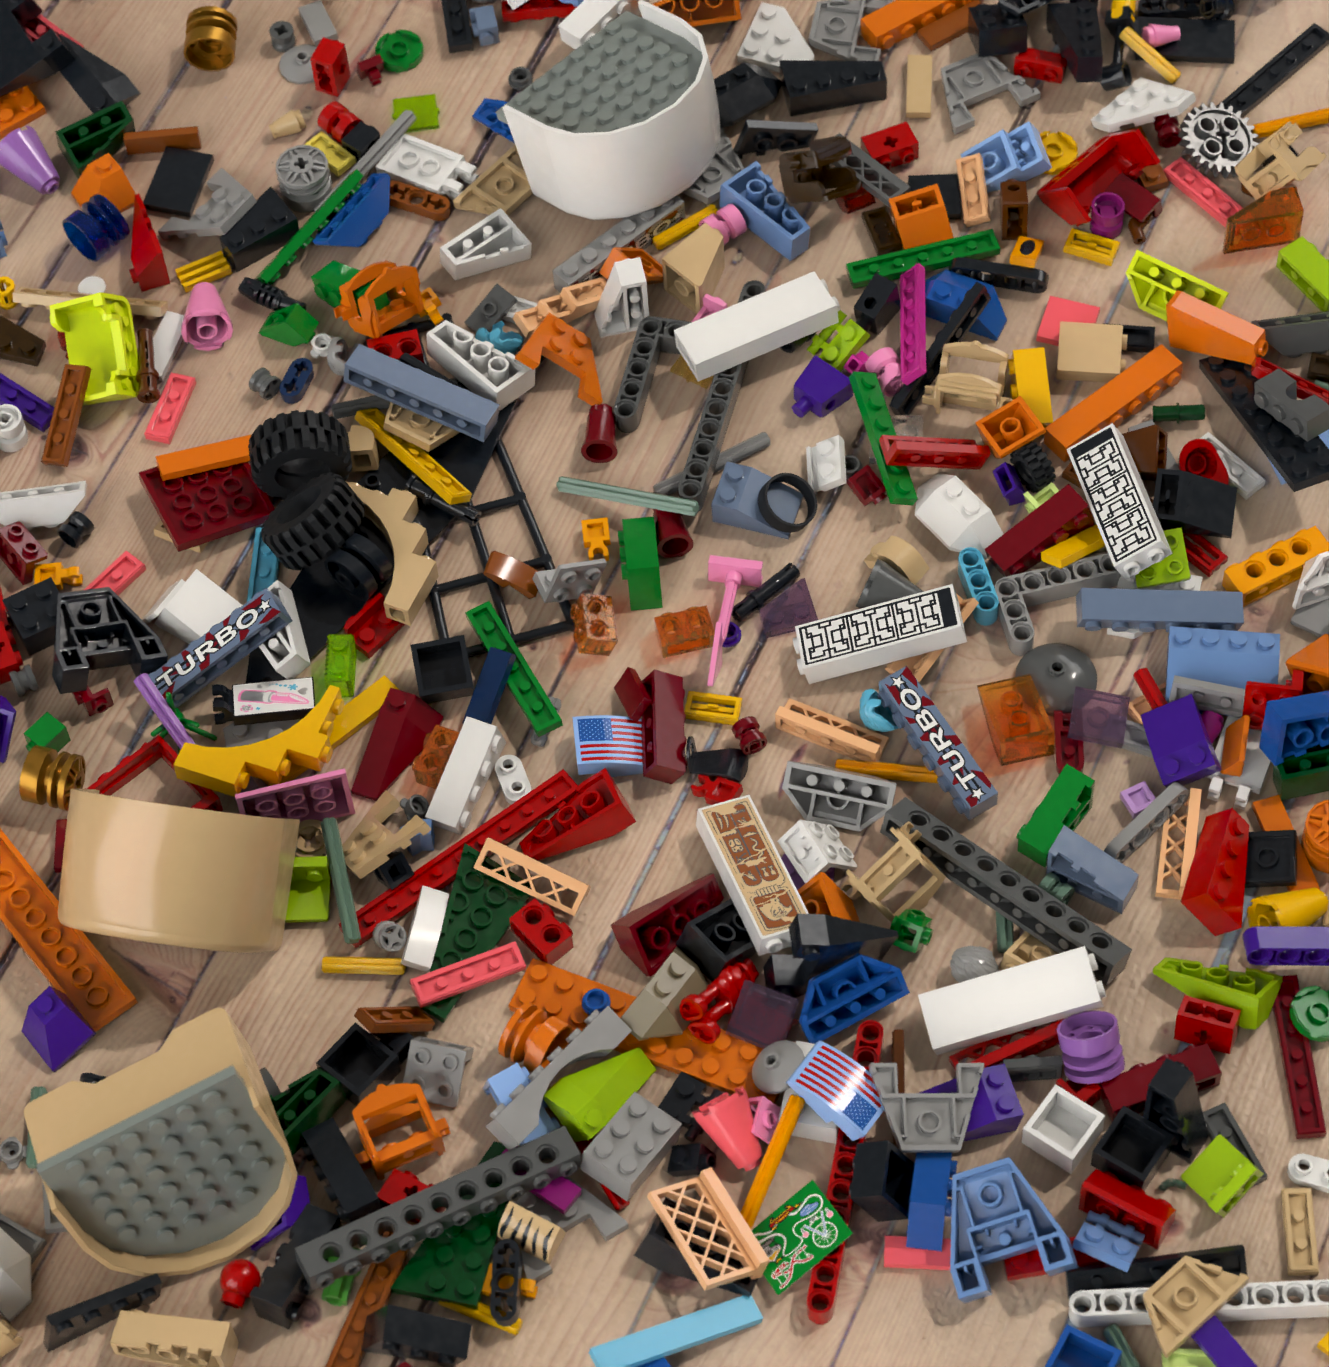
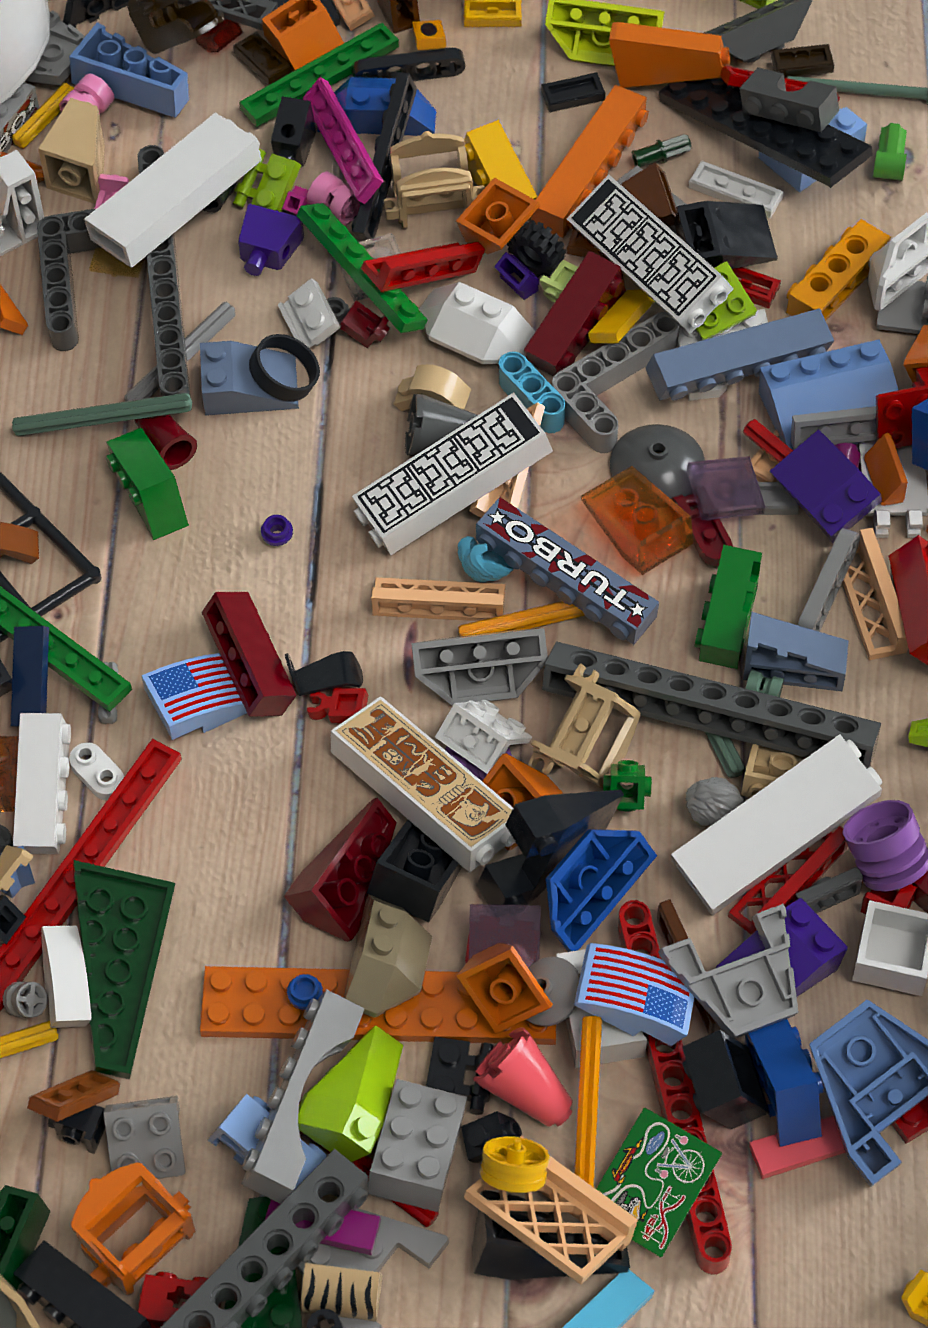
camera: 25 degrees left, 0 degrees up
(360, 1063) = (53, 1164): black piece -> none
(467, 974) = (137, 1012): coral tile -> none
(532, 1036) = (244, 1059): orange wheel -> none
(536, 935) = (199, 939): red brick -> none
(537, 867) = (168, 859): light nougat fence -> none
(569, 580) = (76, 527): light grey bracket -> none
(588, 817) = (203, 783): red wedge -> none
(594, 624) = (122, 566): clear orange brick -> none
(596, 536) = (82, 470): light orange plate -> none
(600, 439) = (41, 360): dark red plant -> none
(632, 694) = (198, 628): dark red tile -> none
(686, 636) = (231, 546): clear orange brick -> none
(692, 1185) = (514, 1164): none -> yellow wheel
(713, 712) = (294, 620): yellow tile -> none
(725, 991) = (451, 927): red piece -> none
(733, 573) = (258, 462): bright pink piece -> none
(740, 1051) = (503, 987): none -> orange slope
(749, 735) = (349, 631): dark red wheel -> none
(756, 598) = (293, 480): black pin -> none
(765, 1117) = (561, 1056): bright pink bracket -> none
(788, 610) = (333, 484): clear purple wing -> none
(1065, 311) = (503, 96): coral tile -> none
(1090, 351) = (542, 115): tan brick -> none
(1137, 798) = (806, 562): lavender plate -> none
(1203, 460) = (711, 184): red piece -> none

